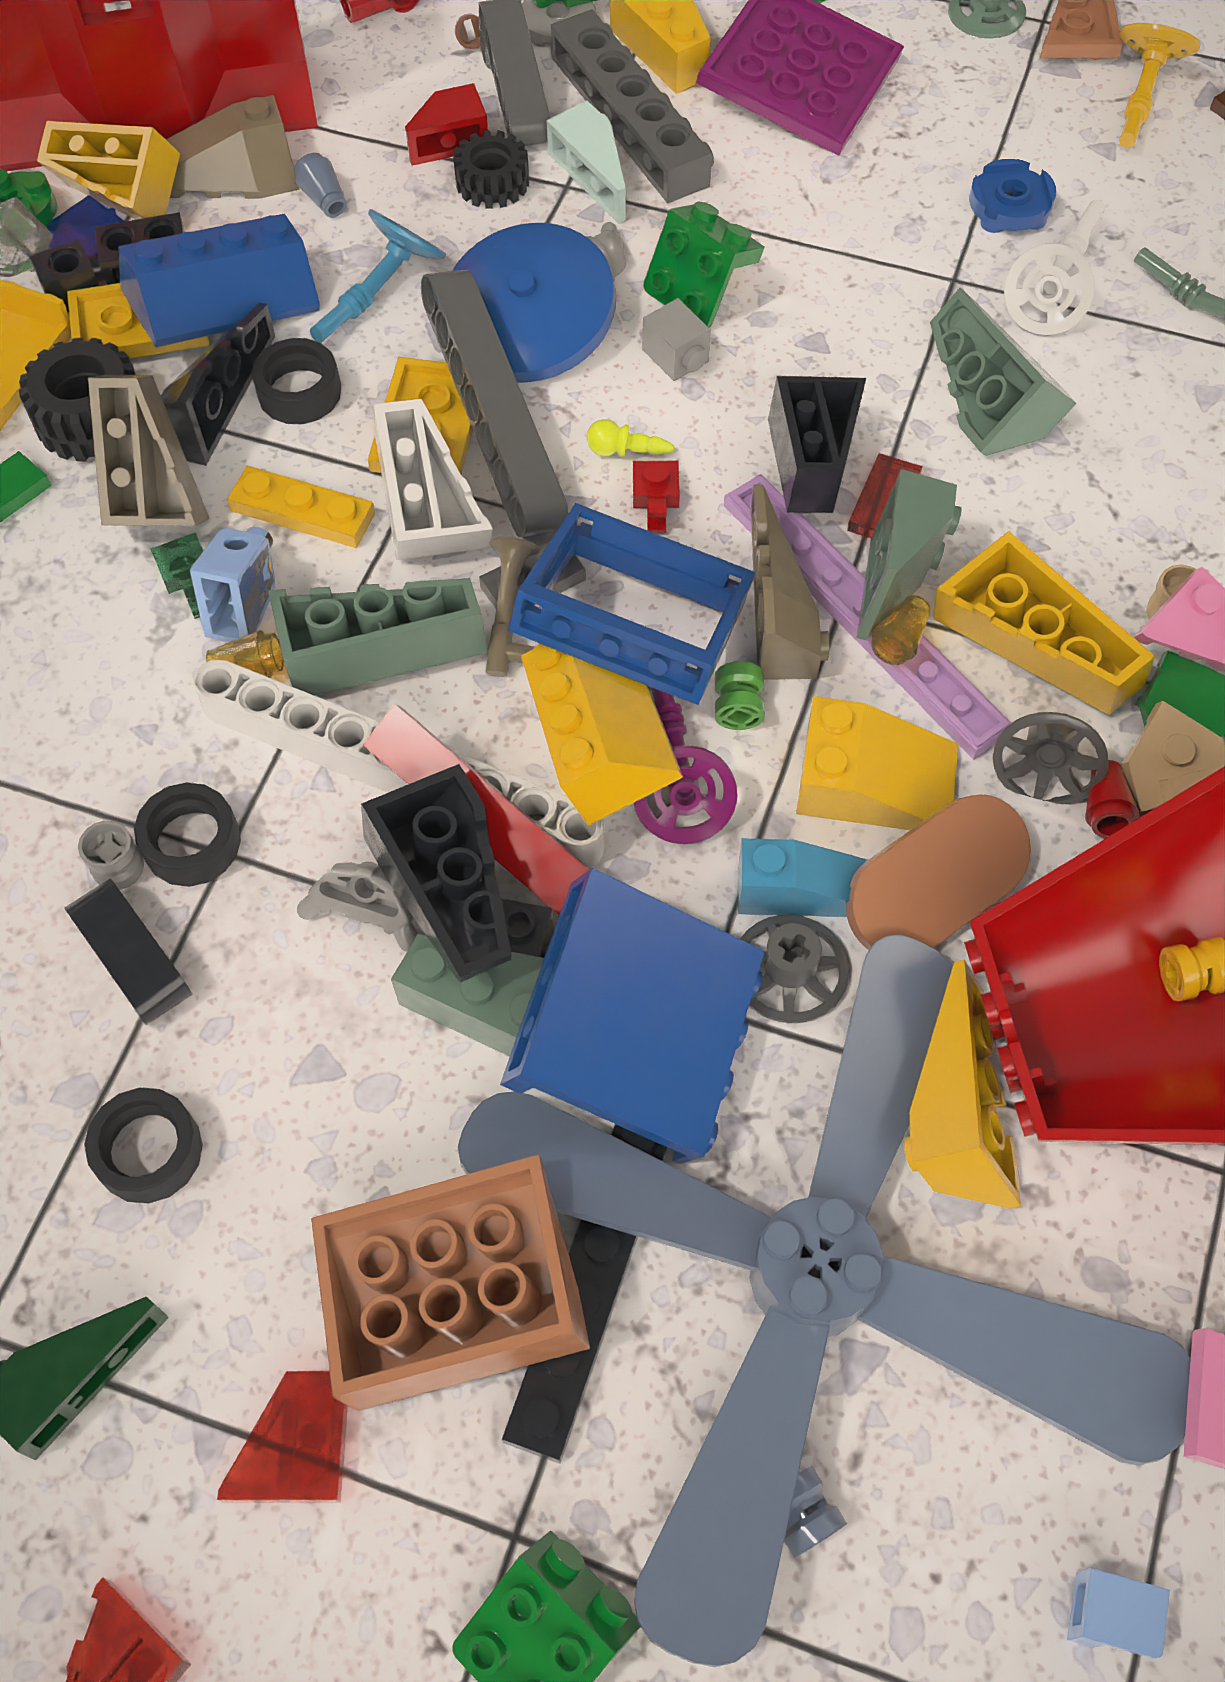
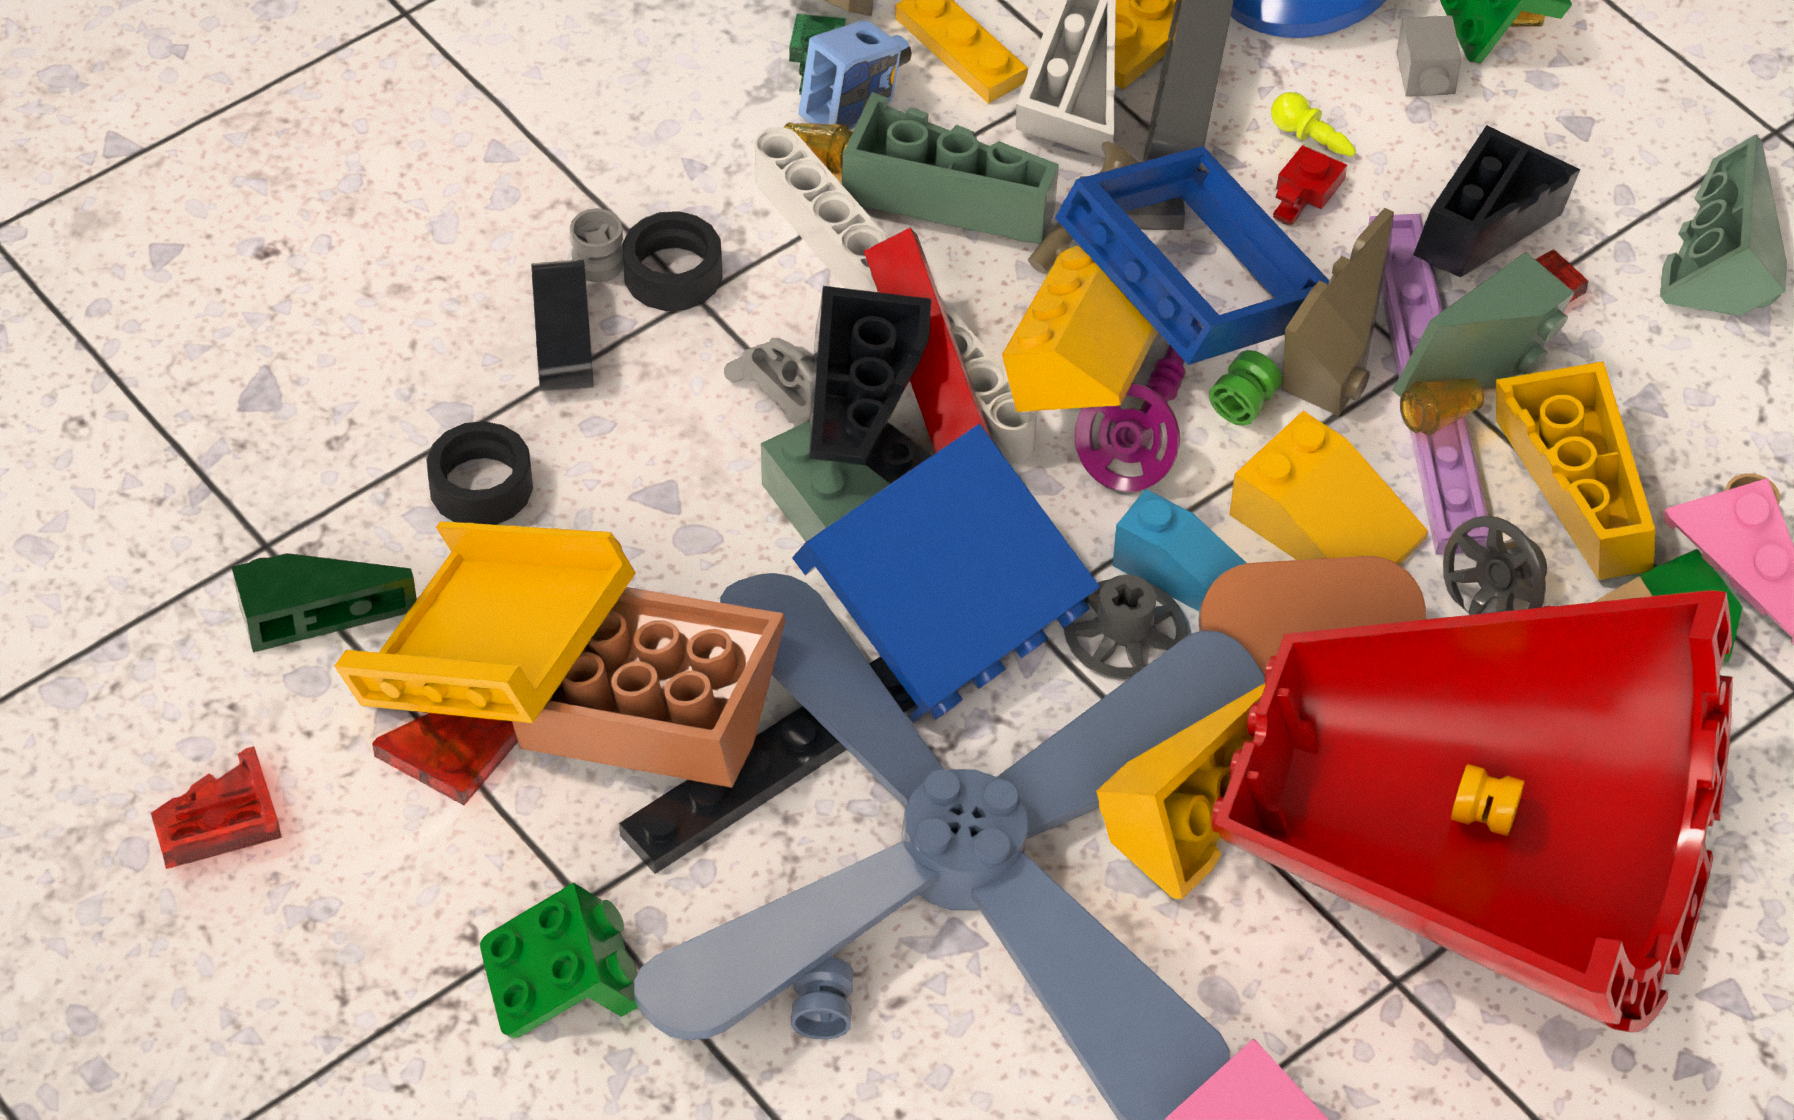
camera: 30 degrees right, 10 degrees down
(267, 1316) = (494, 623): none -> yellow panel

